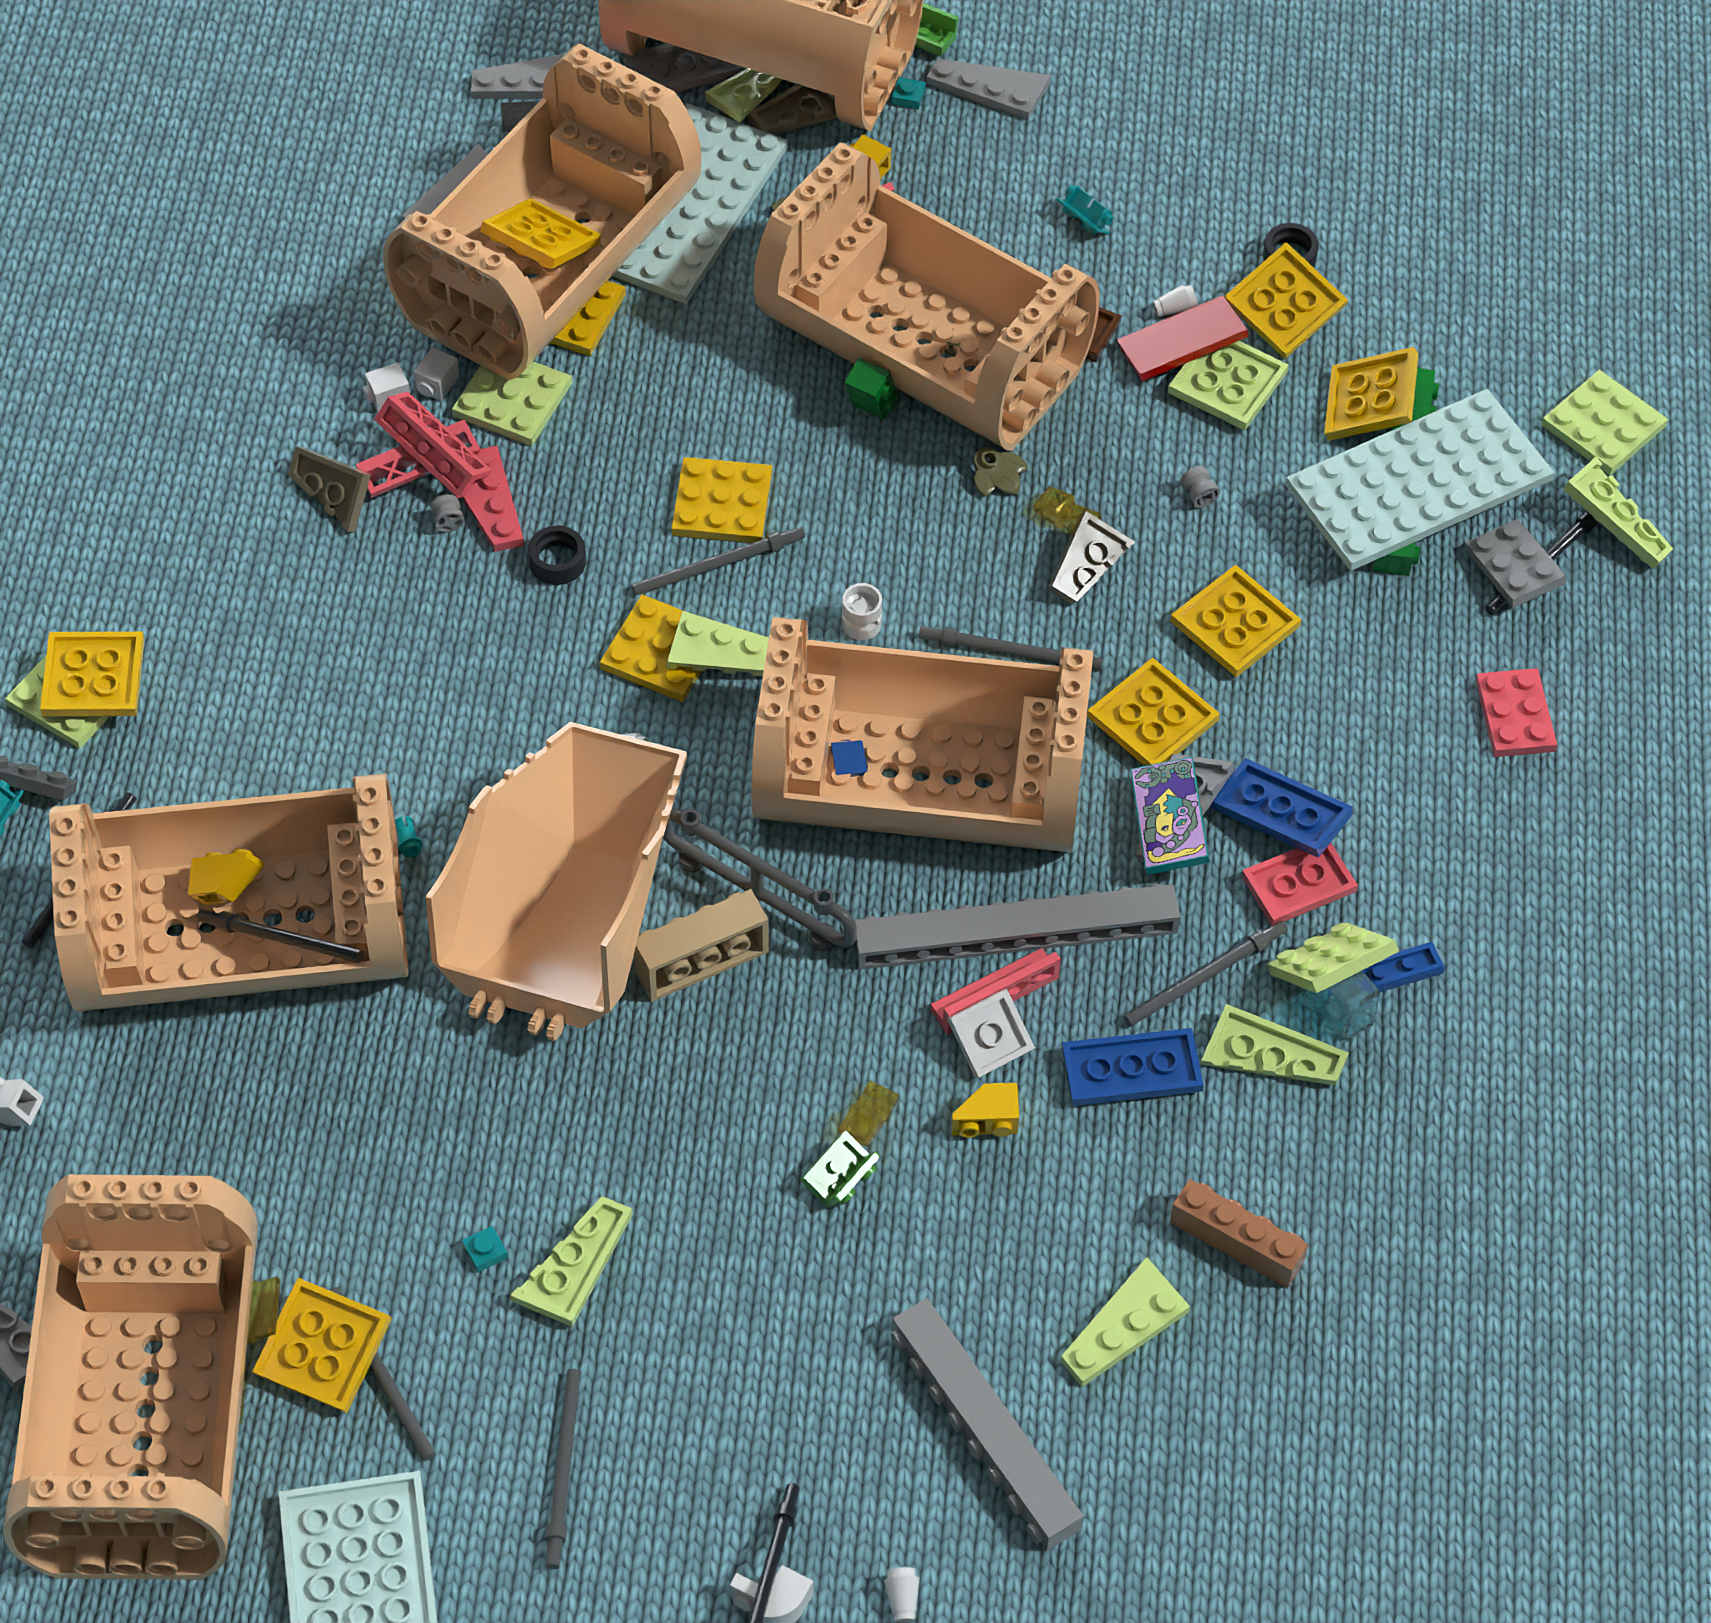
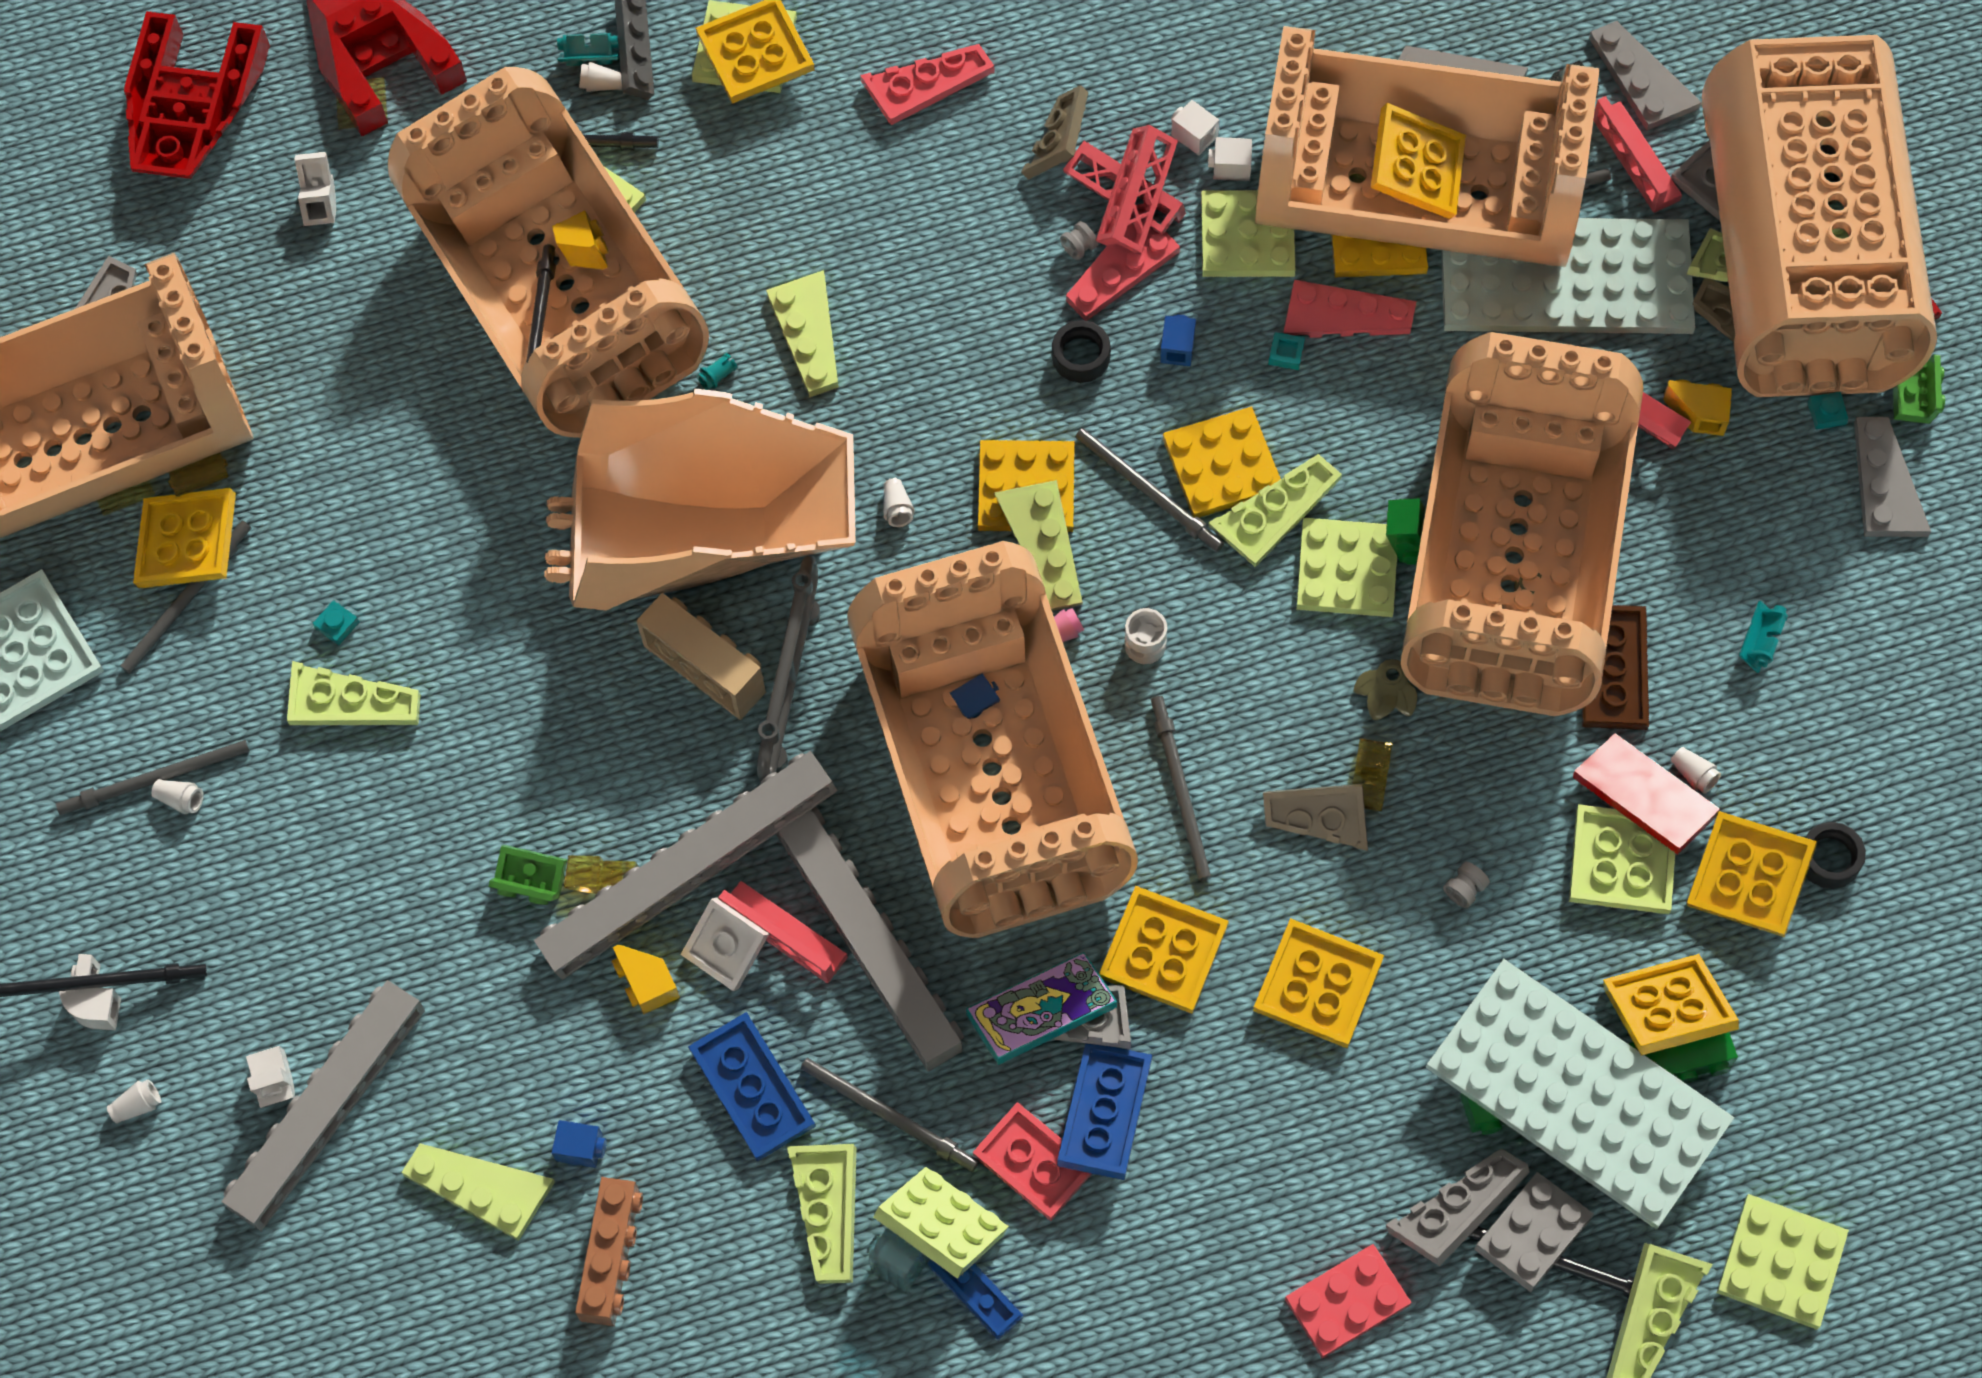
camera: 70 degrees right, 10 degrees up
(29, 818) = (599, 78): none -> white cone
(207, 569) = (917, 86): none -> coral wing
(406, 752) = (806, 326): none -> yellowish green wing
(589, 481) = (1178, 340): none -> blue brick
(596, 1448) = (181, 796): none -> white cone
(625, 366) = (1335, 310): none -> coral wing
(645, 412) = (1286, 351): none -> teal plate
(794, 481) = (1270, 515): none -> yellowish green wing
(870, 454) = (1346, 568): none -> yellowish green plate
(904, 1033) = (685, 865): none -> light grey brick
(938, 1458) = (270, 1076): none -> white brick
(1124, 1223) = (578, 1144): none -> blue brick
(1476, 609) = (1452, 1215): none -> light grey wing

